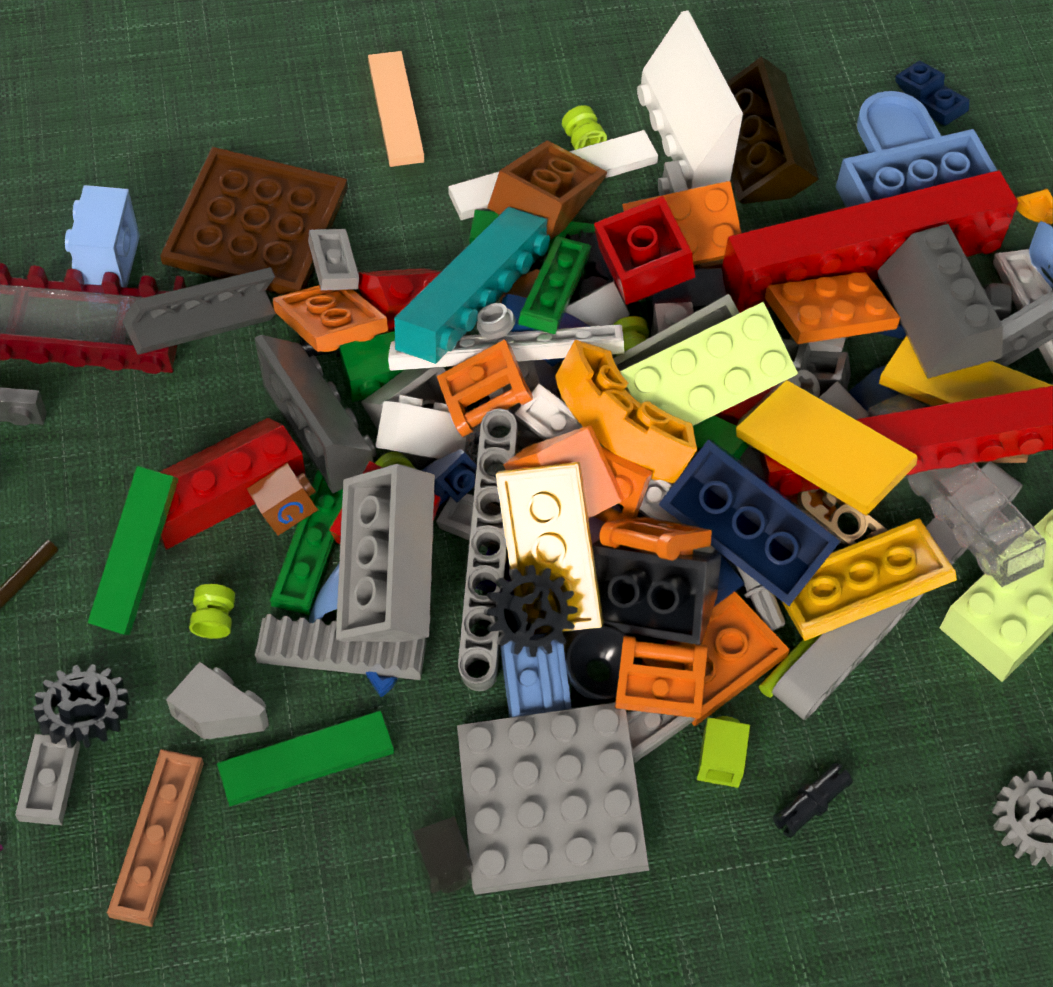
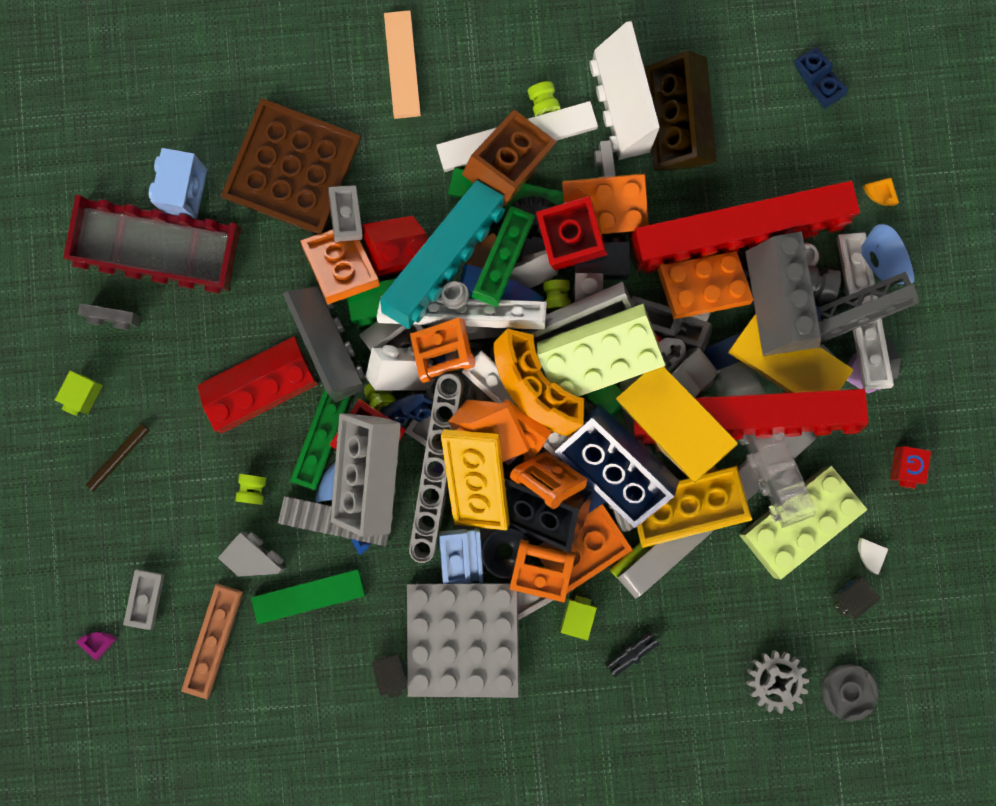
camera: 10 degrees right, 25 degrees up
(81, 706) = (170, 544): black gear -> none
(133, 550) = (197, 445): green tile -> none
(199, 311) = (247, 257): dark grey fence -> none
(283, 498) = (300, 409): dark orange brick -> none
(537, 593) = (454, 513): black gear -> none
(906, 152) = (788, 152): medium blue brick -> none

